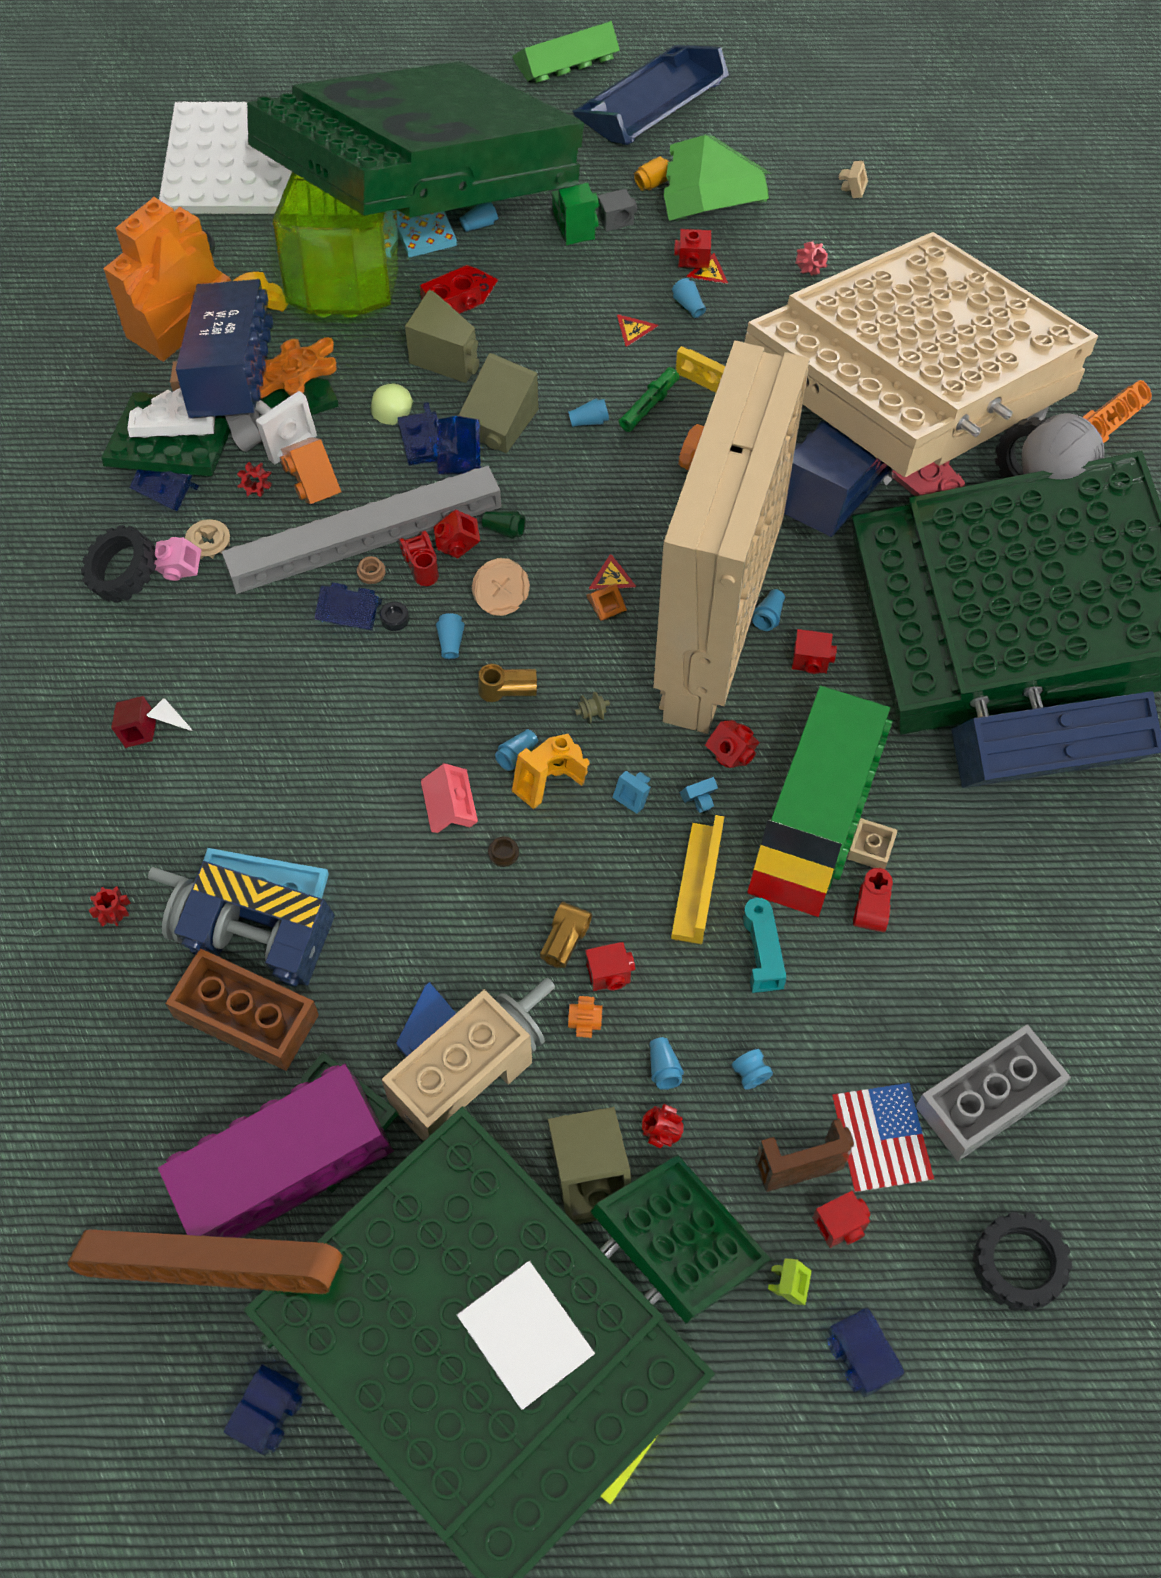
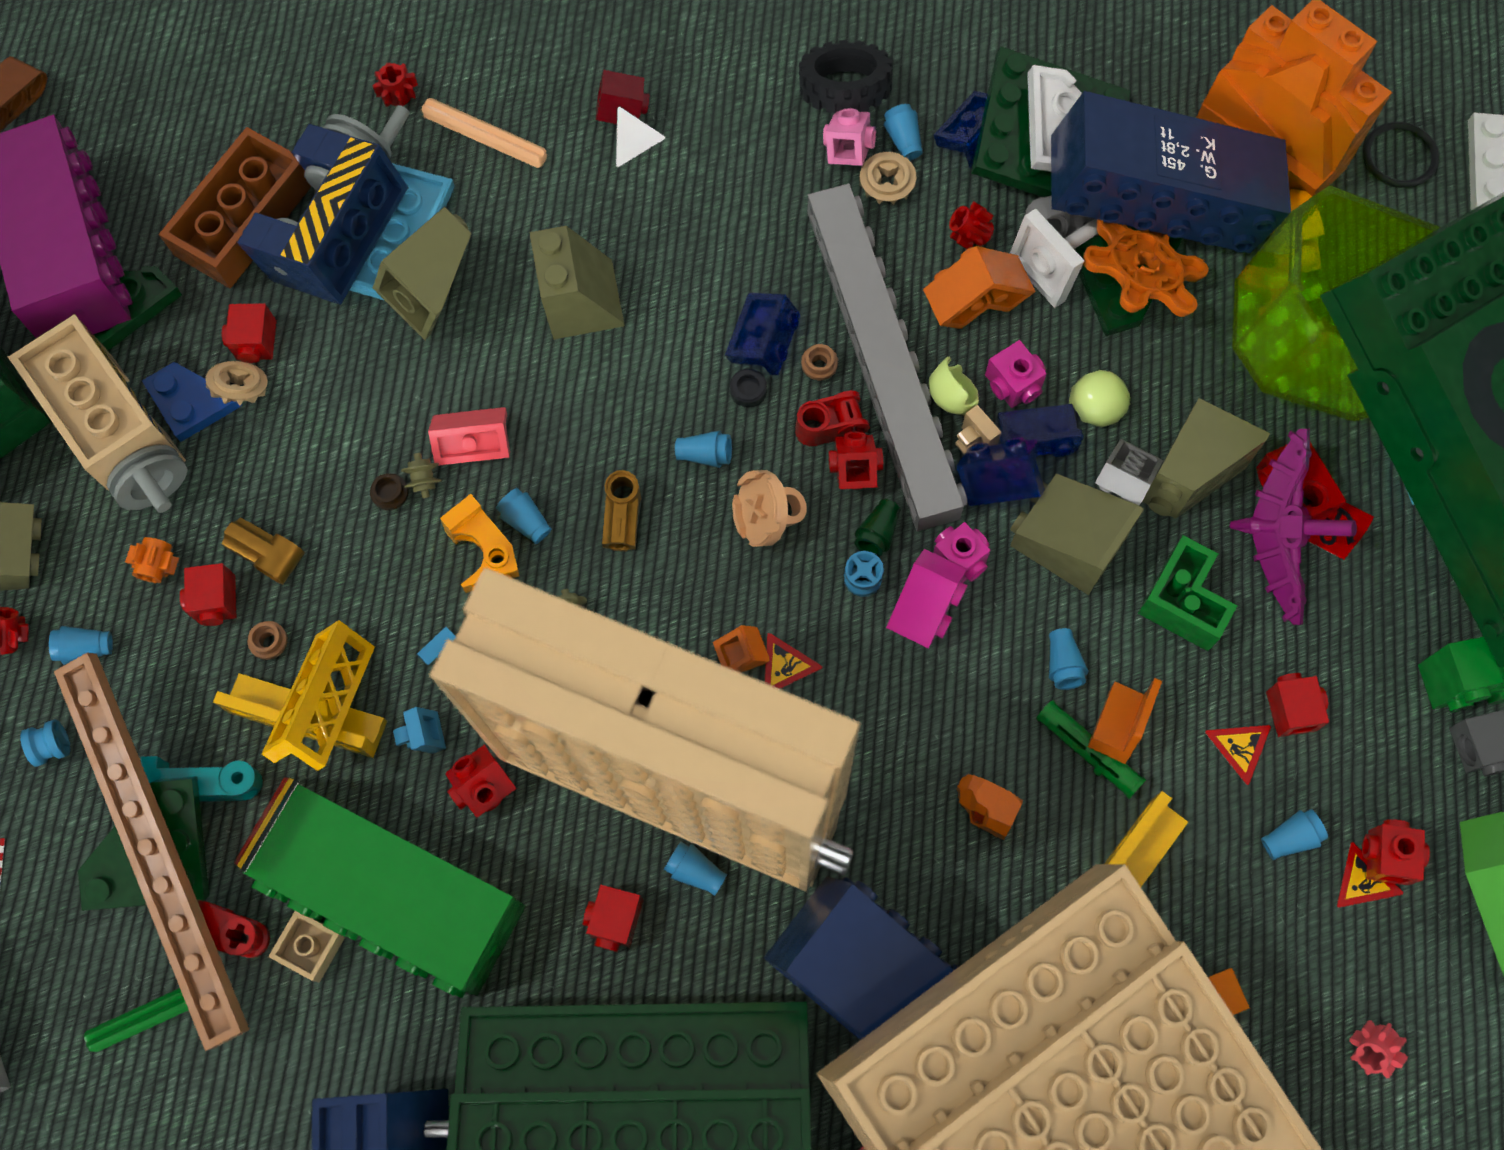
camera: 100 degrees right, 10 degrees up
(158, 832) = (484, 132): none -> light nougat axle
(166, 527) = (904, 130): none -> dark azure cone
(311, 834) = (422, 269): none -> olive slope
(318, 734) = (575, 283): none -> olive slope
(366, 982) = (250, 332): none -> red brick
(379, 445) = (1016, 375): none -> dark pink brick
(393, 481) = (952, 389): none -> yellowish green hair
(416, 970) = (239, 373): none -> tan gear
(424, 467) = (977, 429): none -> tan tile
(455, 373) = (1129, 472): none -> light grey piece
(485, 298) = (1284, 526): none -> magenta bar
(490, 824) = (421, 475): none -> olive wheel
(521, 471) = (972, 544): none -> dark pink brick
(541, 349) = (1182, 603): none -> green brick
(544, 525) = (863, 565): none -> dark azure wheel
(560, 481) = (926, 598): none -> dark pink brick
(605, 296) = (1297, 705): none -> red brick
(629, 374) = (1123, 720): none -> orange panel
(643, 912) = (260, 633): none -> medium nougat plate
(688, 852) = (308, 690): none -> yellow fence
(823, 945) = (151, 852): none -> medium nougat plate
(827, 964) = (107, 875): none -> dark green plate
(945, 950) = (135, 1021): none -> green axle

